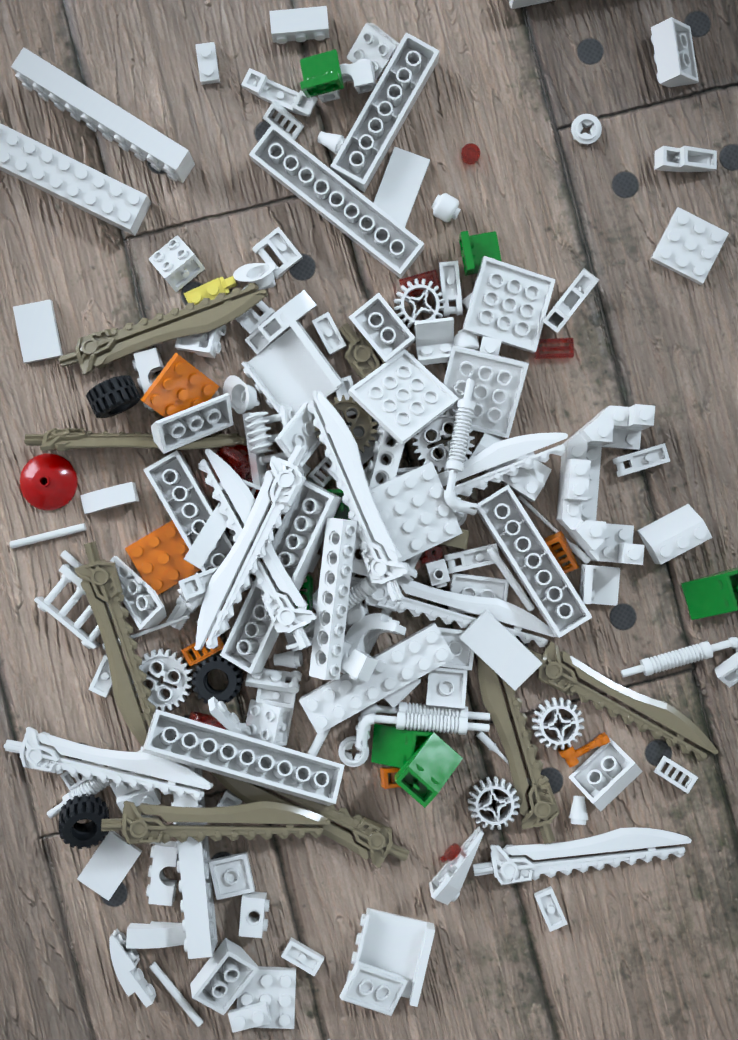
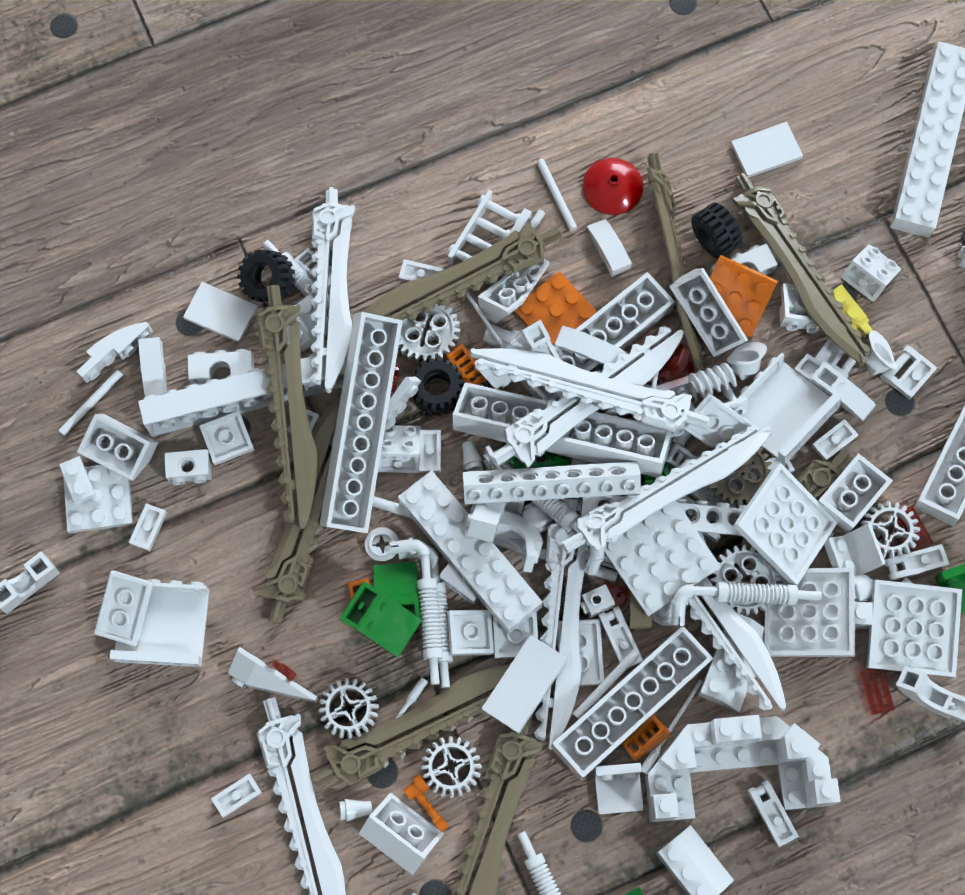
camera: 80 degrees right, 15 degrees down
(275, 680) = (446, 446): white plate -> none

